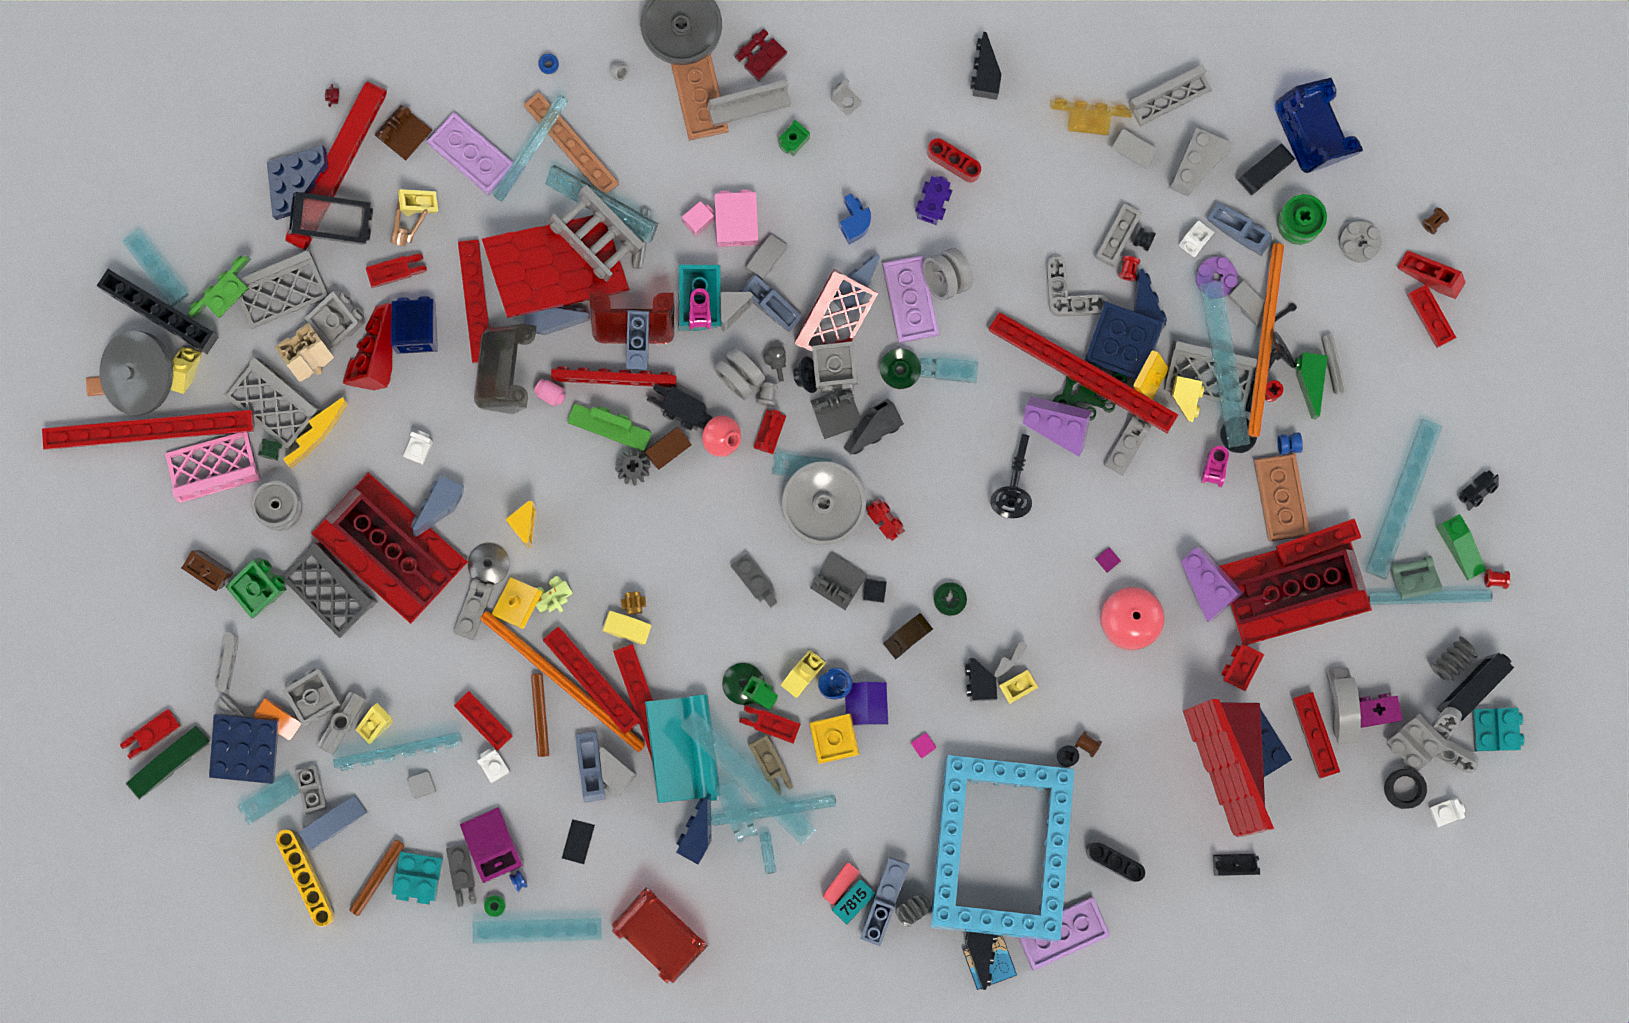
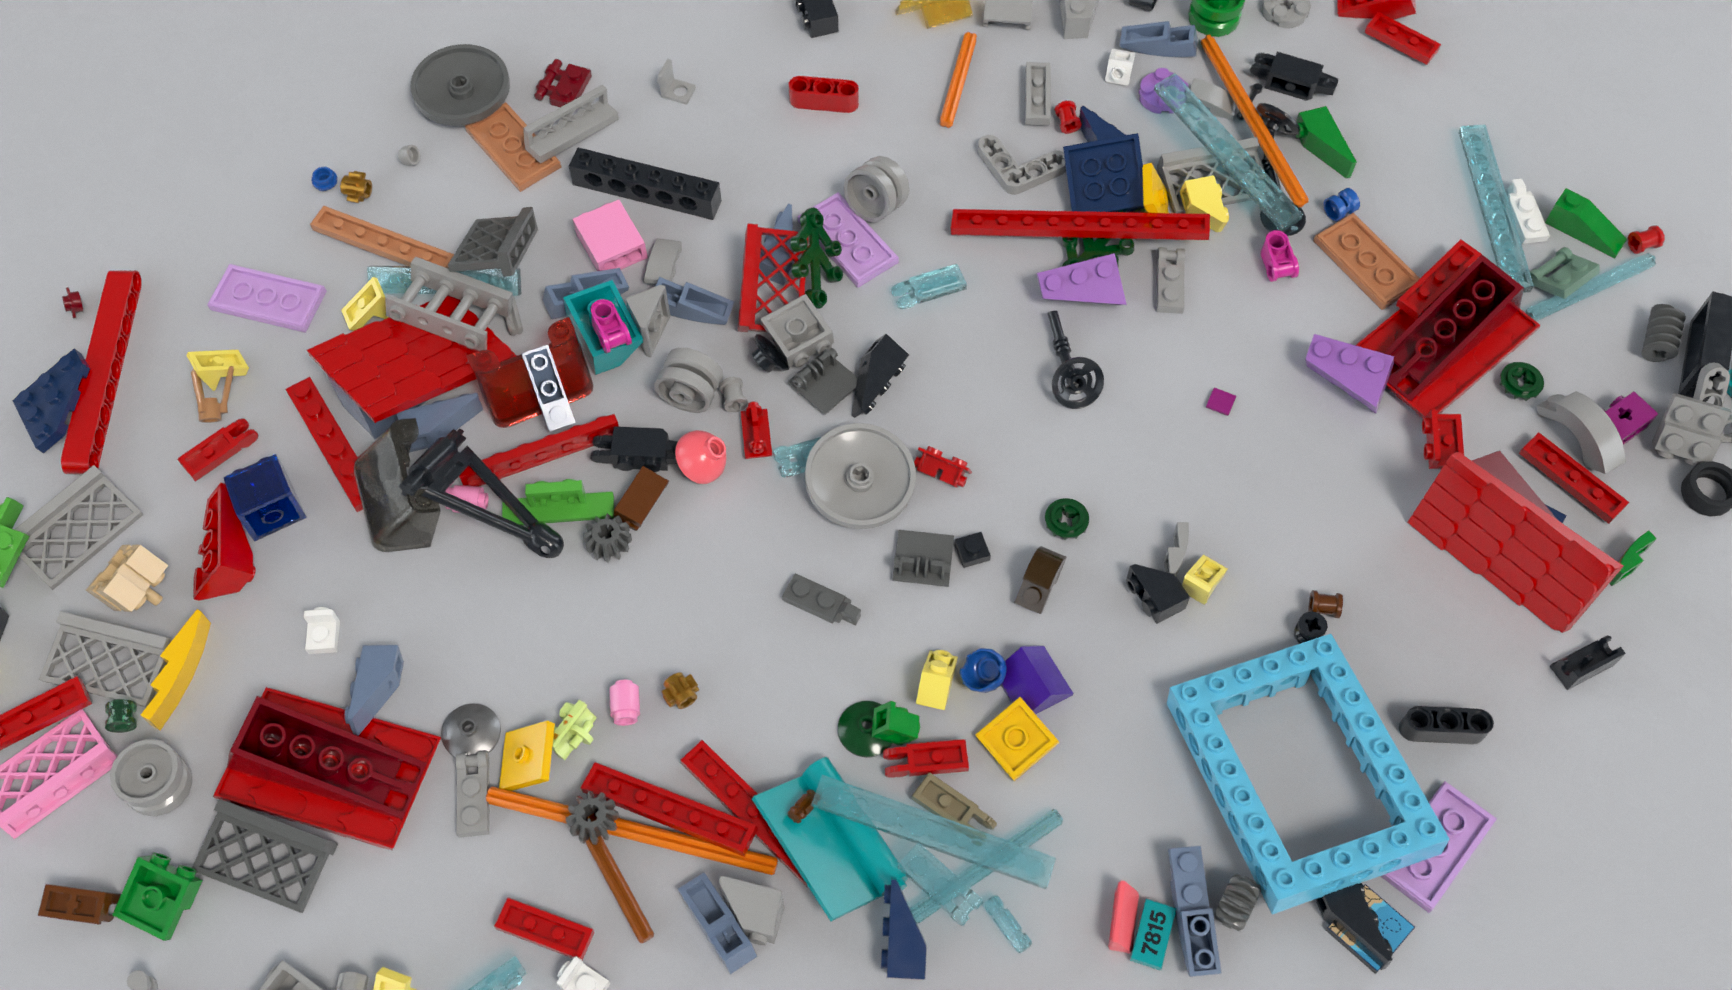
camera: 15 degrees left, 20 degrees down
(330, 218) = (110, 419): window -> none
(335, 319) = (159, 527): light grey plate -> none
(403, 132) = (174, 306): reddish brown hinge -> none
(523, 522) = (491, 655): yellow slope -> none
(530, 147) = (335, 261): clear light blue axle -> none
(535, 662) = (601, 809): none -> dark grey gear
(536, 376) = (444, 464): none -> black piece
(537, 199) = (364, 305): none -> light yellow slope
(569, 85) = (356, 186): none -> pearl gold gear
(594, 593) = (624, 702): none -> bright pink brick
(626, 627) = (684, 723): light yellow slope -> none
(662, 198) = (496, 238): none -> dark grey fence
(674, 721) = (802, 807): none -> reddish brown piece
(698, 218) = (565, 254): bright pink brick -> none
(699, 255) = (554, 294): none -> sand blue slope
(776, 359) = (726, 356): dark grey piece -> none
(782, 182) = (645, 183): none -> black brick
(793, 146) = (637, 140): green brick -> none
(859, 222) = (747, 187): blue brick -> none
(882, 289) = (812, 227): none -> dark green plant
(900, 358) = (877, 298): dark green dish -> none
(923, 745) = (1130, 699): dark pink piece -> none
(936, 193) = (821, 132): dark purple brick -> none
(1065, 191) = (958, 80): none -> orange axle
(1122, 628) = (1288, 446): coral cylinder -> none
(1144, 239) = (1067, 85): black wheel -> none
(1276, 386) = (1294, 159): red bush -> none
(1310, 812) = (1631, 558): none -> green slope
(1324, 312) = (1293, 75): none -> black hinge
(1334, 364) = (1346, 128): light grey axle -> none
(1339, 647) = (1532, 380): none -> dark green gear
(1424, 514) = (1526, 214): none -> white hinge
(1486, 484) = (1563, 166): black hinge -> none

